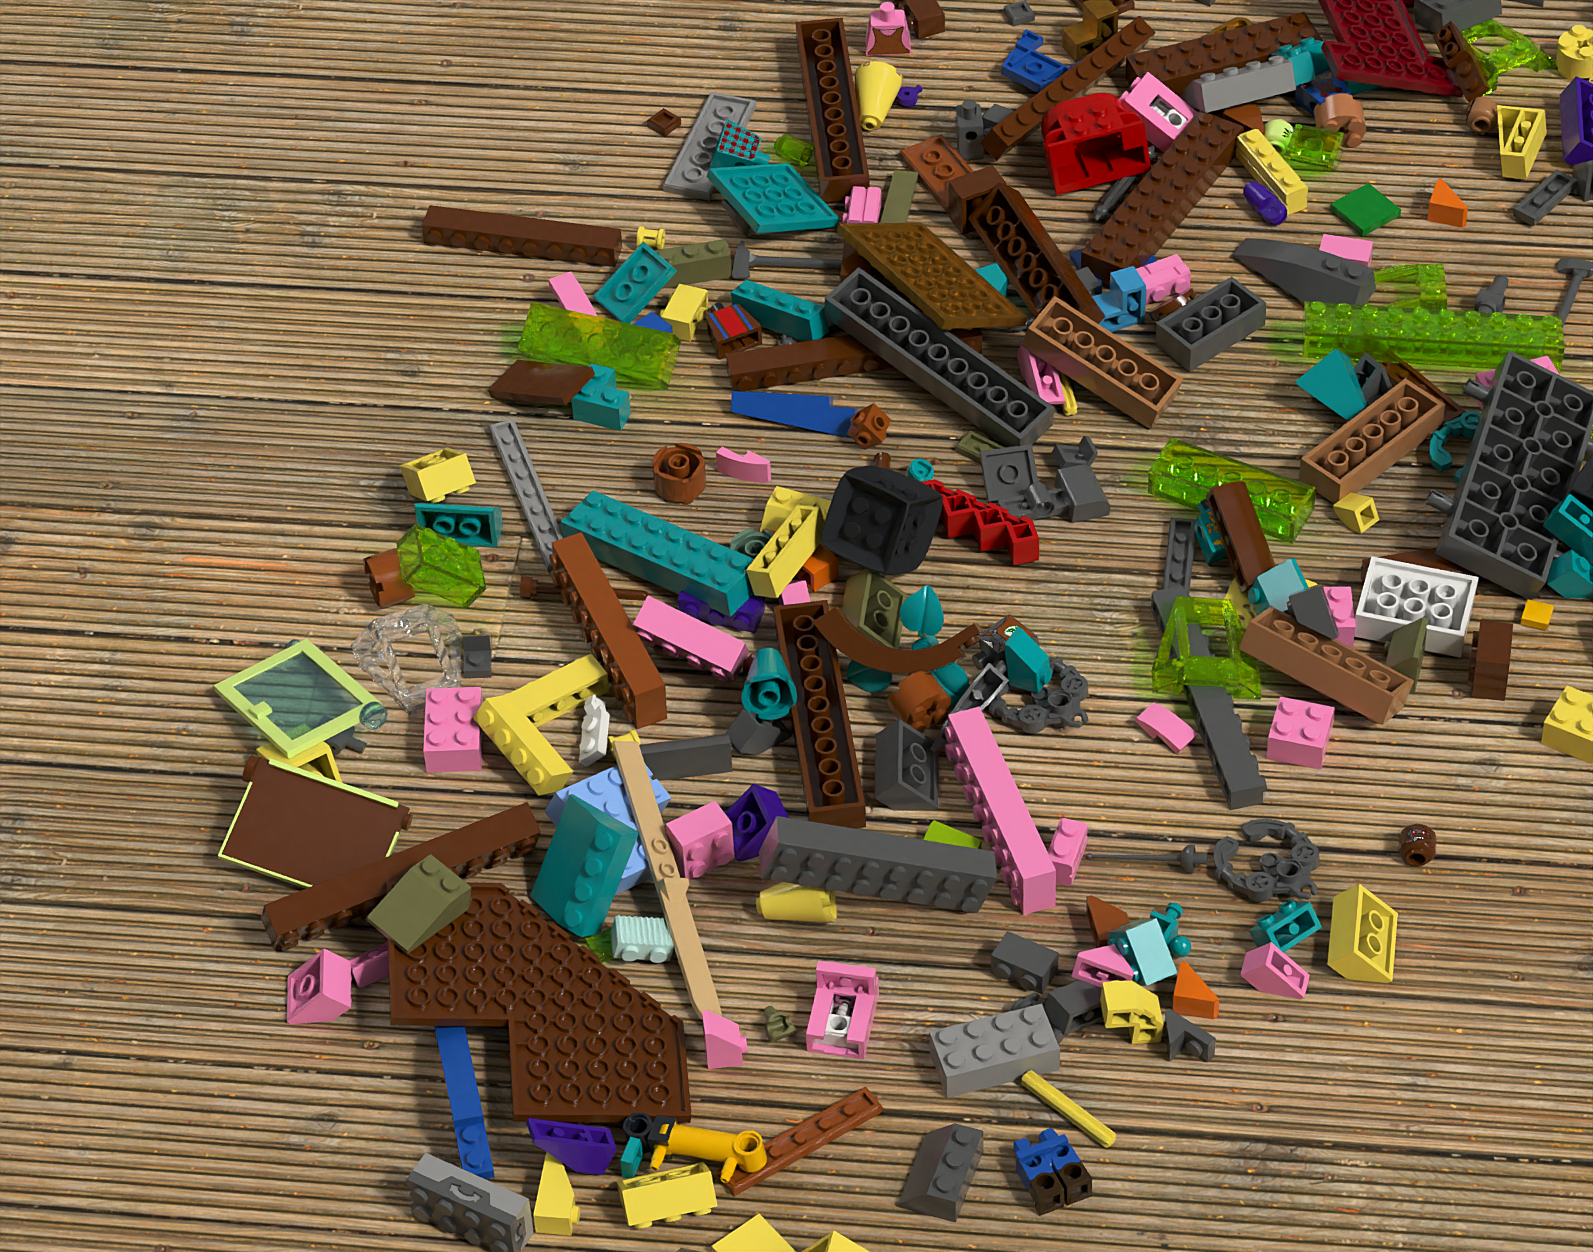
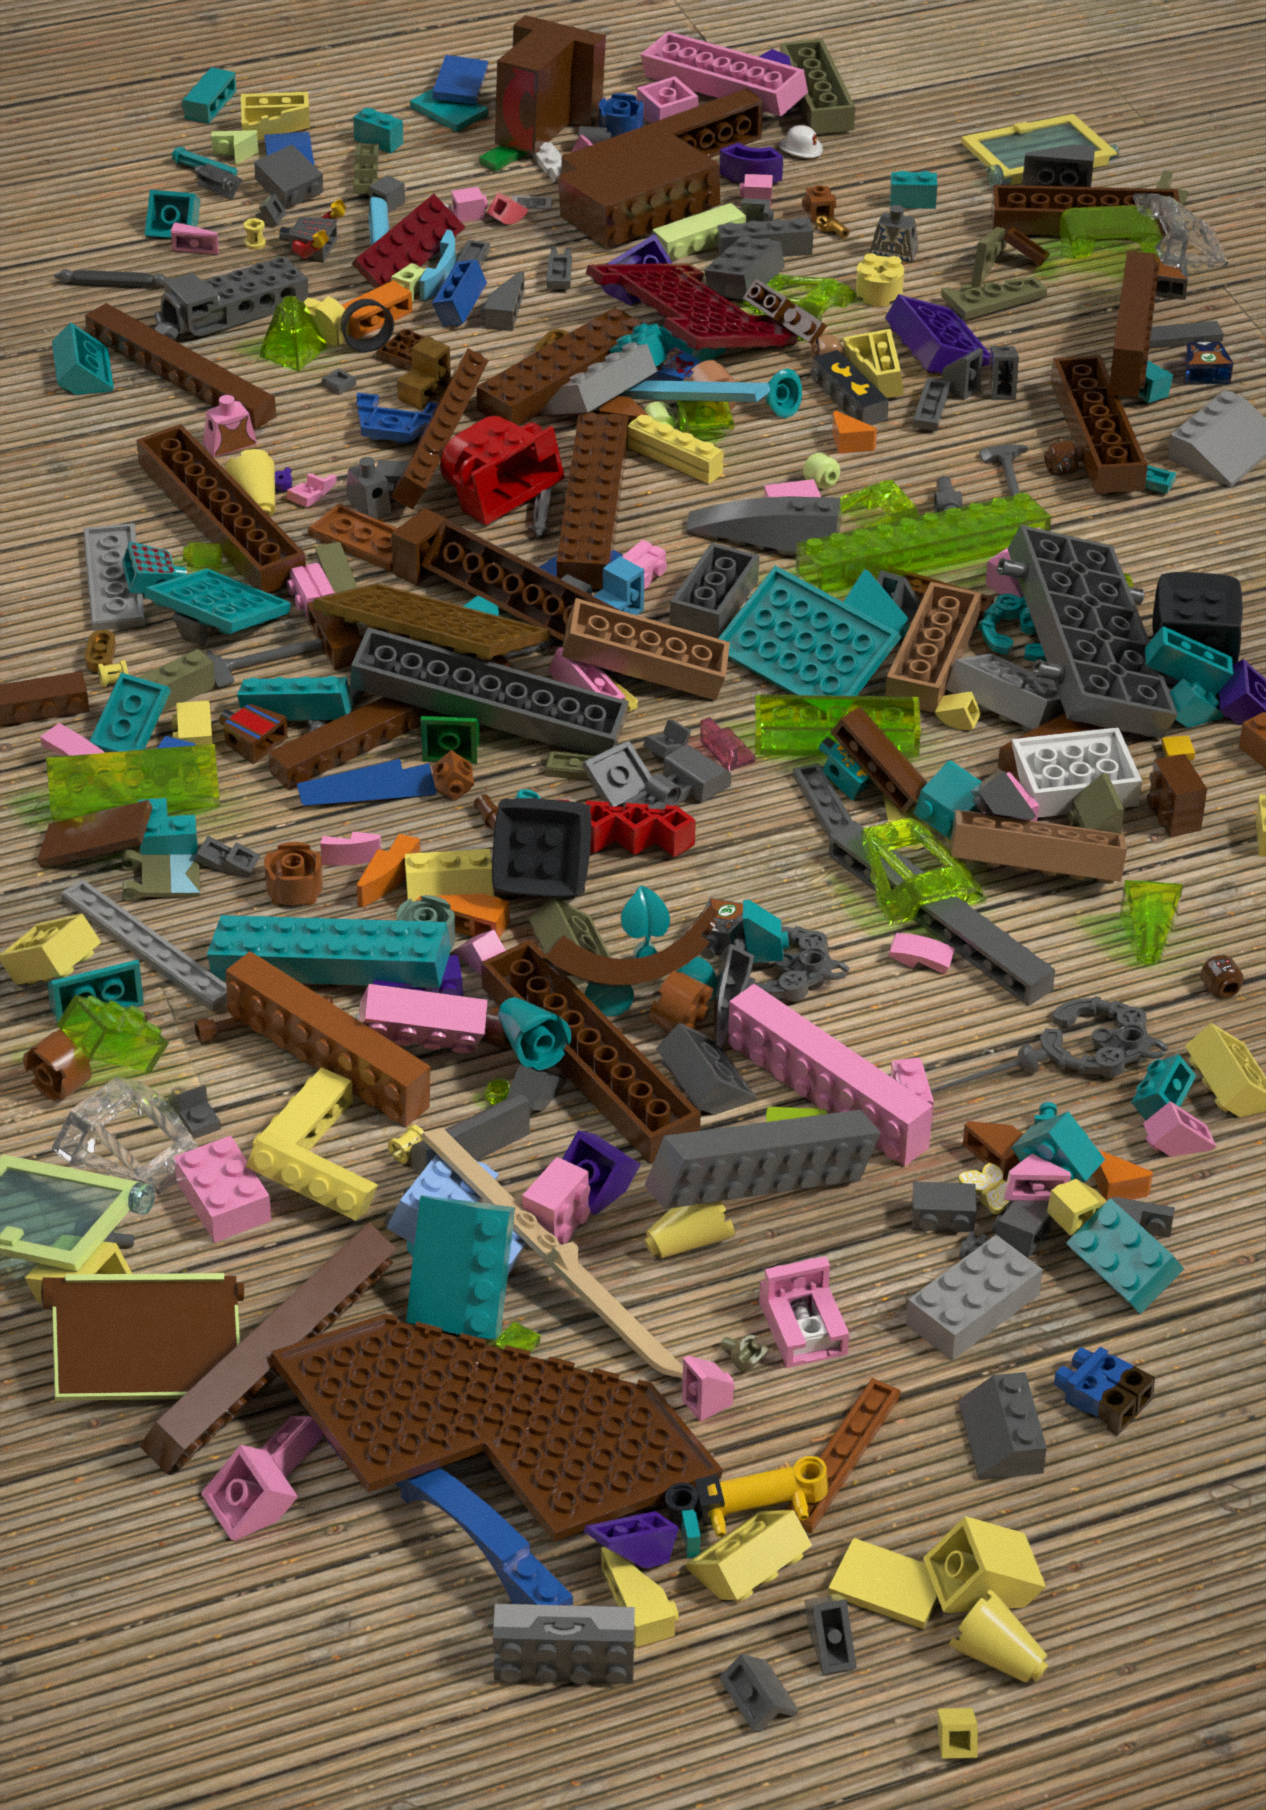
camera: 30 degrees left, 5 degrees down
(421, 904) = (328, 1359): olive slope -> none
(581, 437) = (161, 876): none -> olive flag
(594, 731) = (369, 1142): white hinge -> none
(639, 438) = (229, 860): none -> dark grey slope
(641, 939) = (557, 1319): light aqua brick -> none
(654, 212) = (100, 649): none -> pearl gold plate
(664, 122) = (52, 568): reddish brown tile -> none
(723, 723) = (496, 1091): none -> clear neon green plate
(754, 495) = (386, 870): none -> orange slope
(786, 551) = (465, 906): light yellow brick -> none
(888, 391) = (447, 734): none -> green slope
(925, 115) = (311, 491): none -> bright pink slope
(1068, 954) = (989, 1185): none -> light yellow animal
(1068, 1109) = (1077, 1325): light yellow axle -> none
(1128, 476) = (725, 745): none -> clear pink panel
(1141, 1064) = (1125, 1256): none -> teal brick
(1160, 108) = (526, 409): bright pink brick -> none
(1172, 304) = (668, 583): reddish brown tile -> none
(1255, 399) = (806, 639): none -> teal plate
(1265, 203) = (688, 477): dark purple arm -> none
(1300, 733) = (1049, 915): bright pink brick -> none
(1314, 121) = (697, 391): none -> medium azure tile
(1365, 209) = (779, 458): green tile -> none
(1387, 769) = (1149, 917): none -> clear neon green slope
(1392, 232) = (822, 469): none -> yellowish green head
(1400, 499) = (1006, 690): none -> light grey slope
(1408, 146) = (784, 393): none -> teal hat
(1475, 158) = (849, 388): none -> brick

